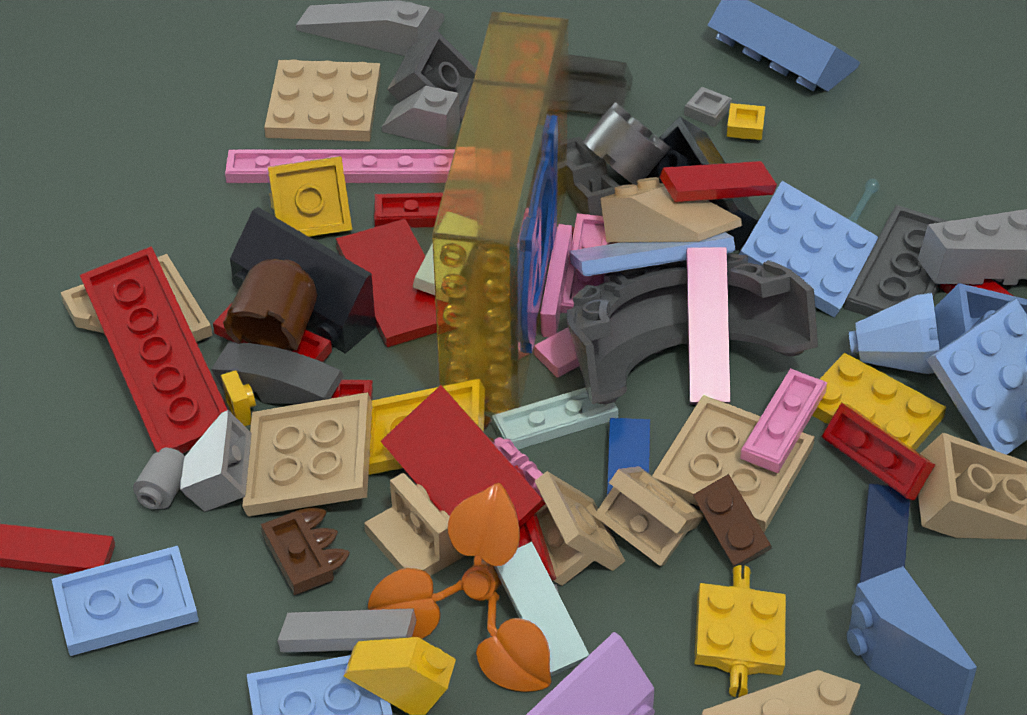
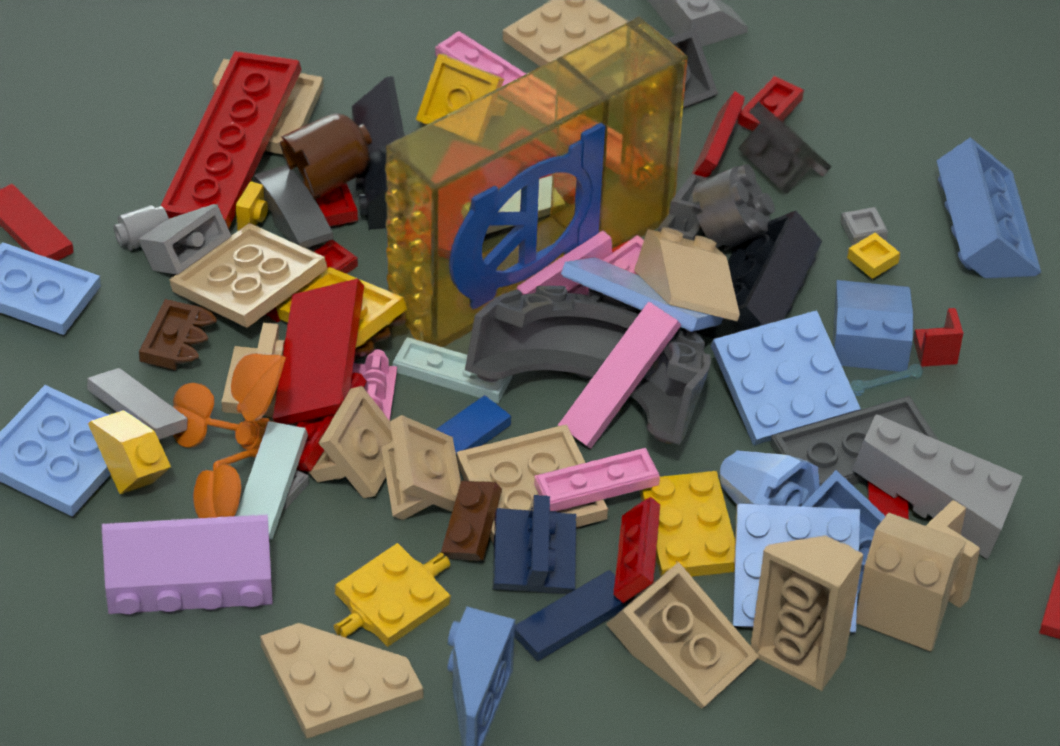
camera: 40 degrees right, 0 degrees up
(718, 181) = (752, 274): red tile -> none
(805, 508) = (534, 549): none -> dark blue bracket
(815, 165) = (873, 325): none -> medium blue slope
(870, 150) = (940, 345): none -> red panel

